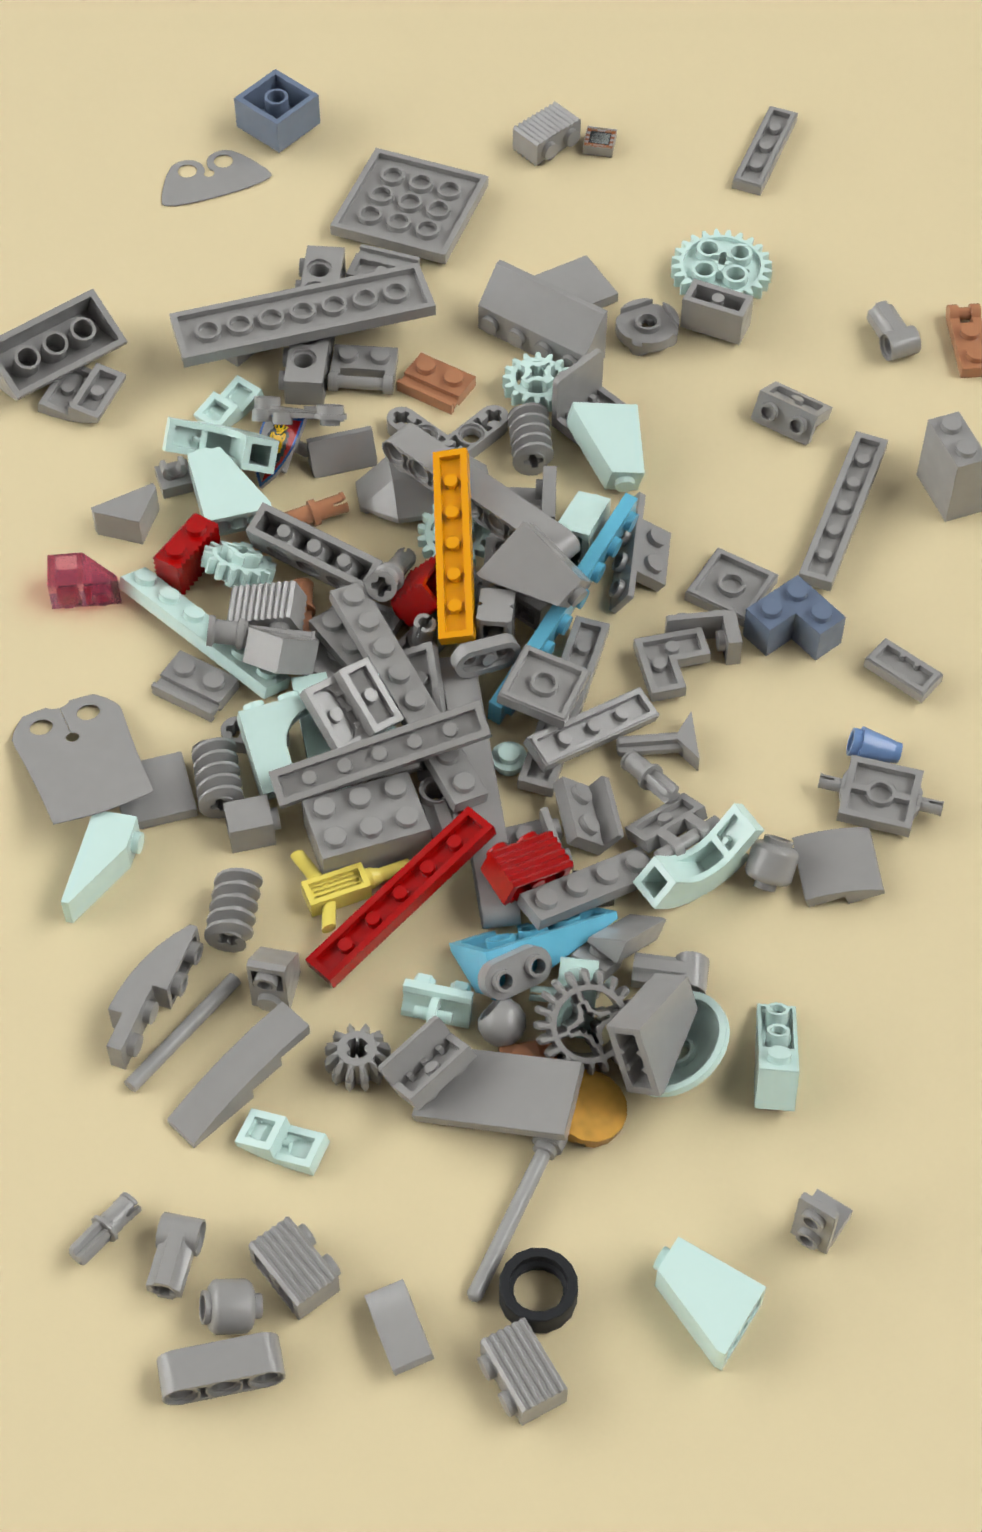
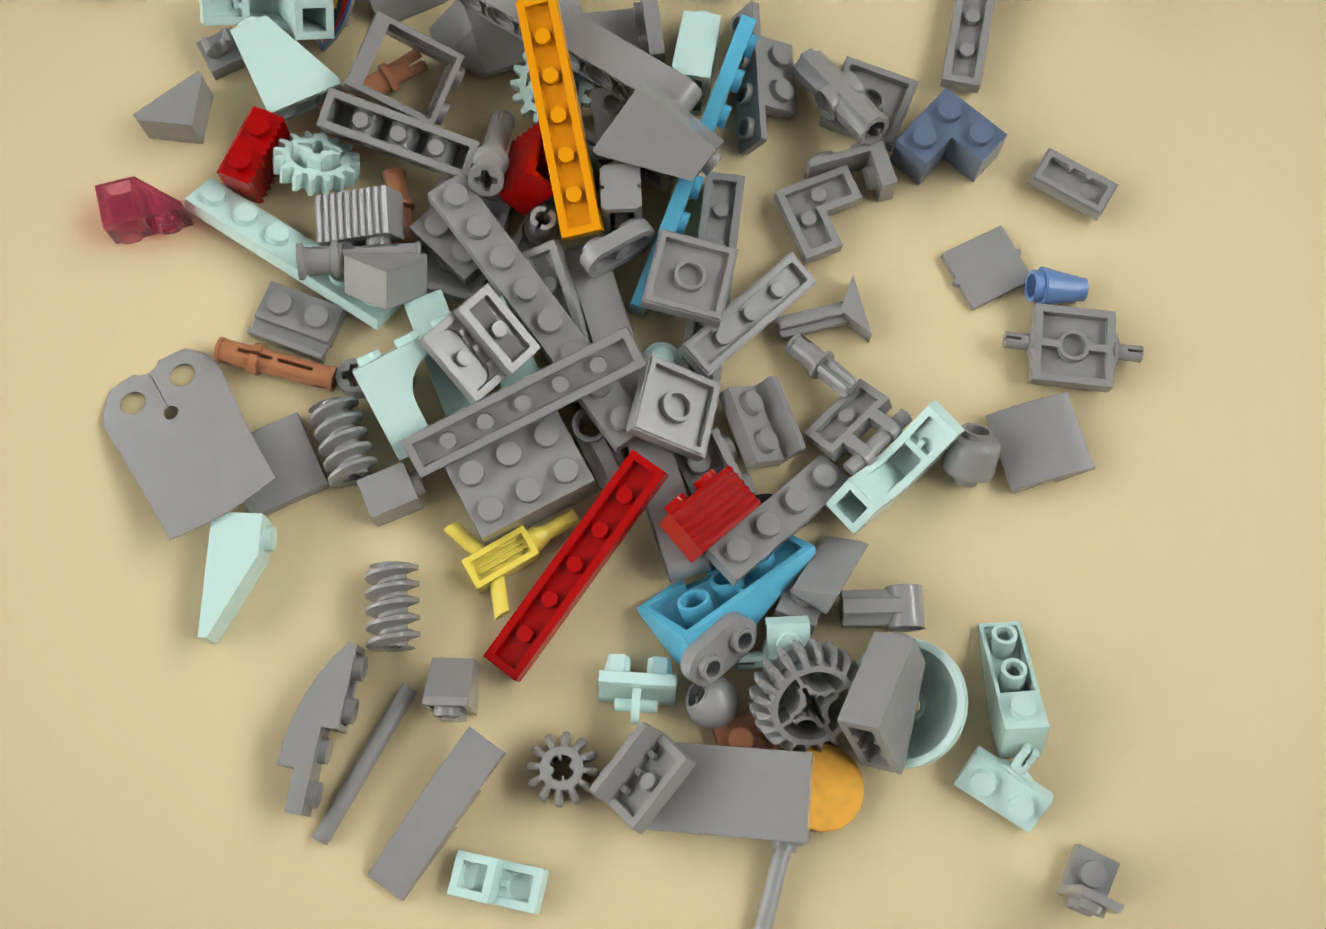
camera: 10 degrees left, 20 degrees up
(159, 708) = (259, 360): none -> nougat pin
(342, 481) = (450, 77): none -> light grey window
(511, 782) = (674, 408): none -> light grey plate
(704, 572) = (840, 97): none -> light grey piece
(757, 1130) = (1006, 785): none -> light aqua plate
(814, 726) = (986, 267): none -> light grey piece

